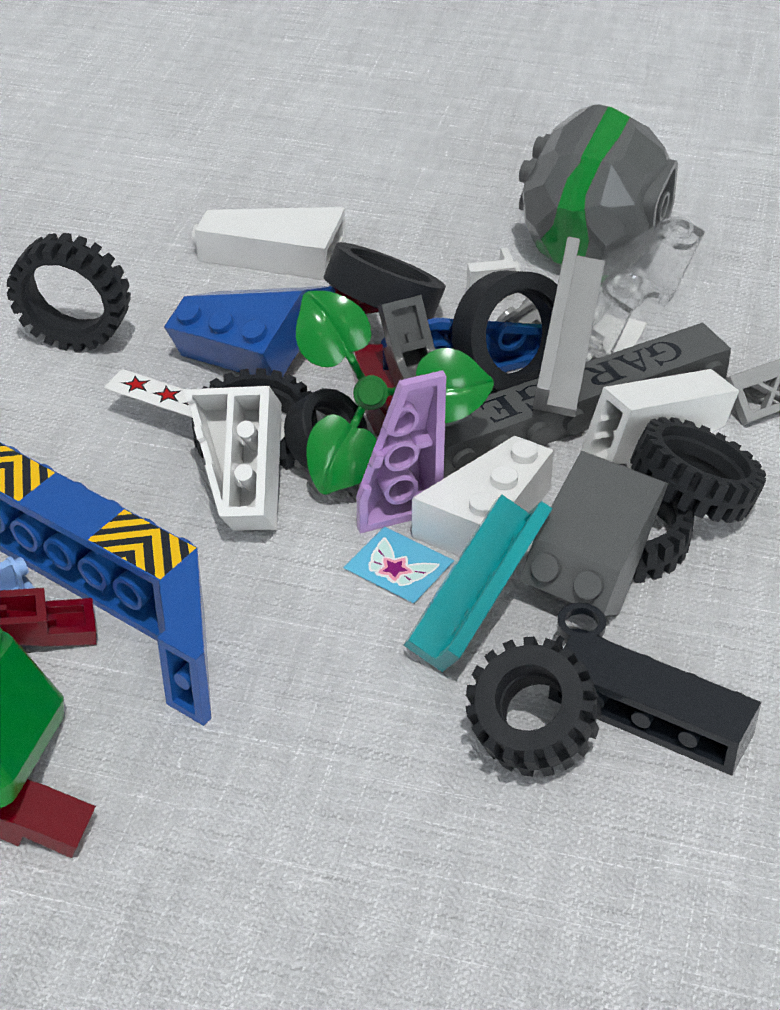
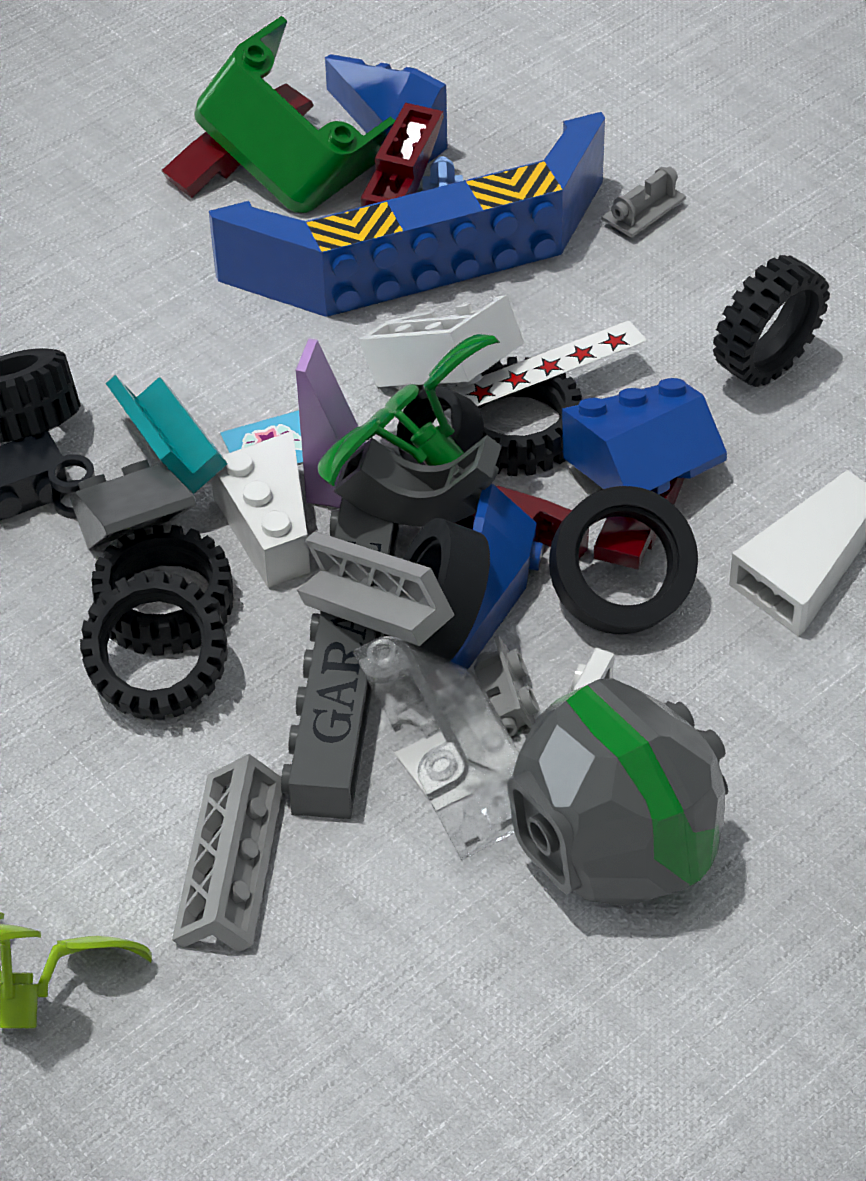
camera: 125 degrees right, 5 degrees up
(629, 407) = (255, 674): white slope -> none

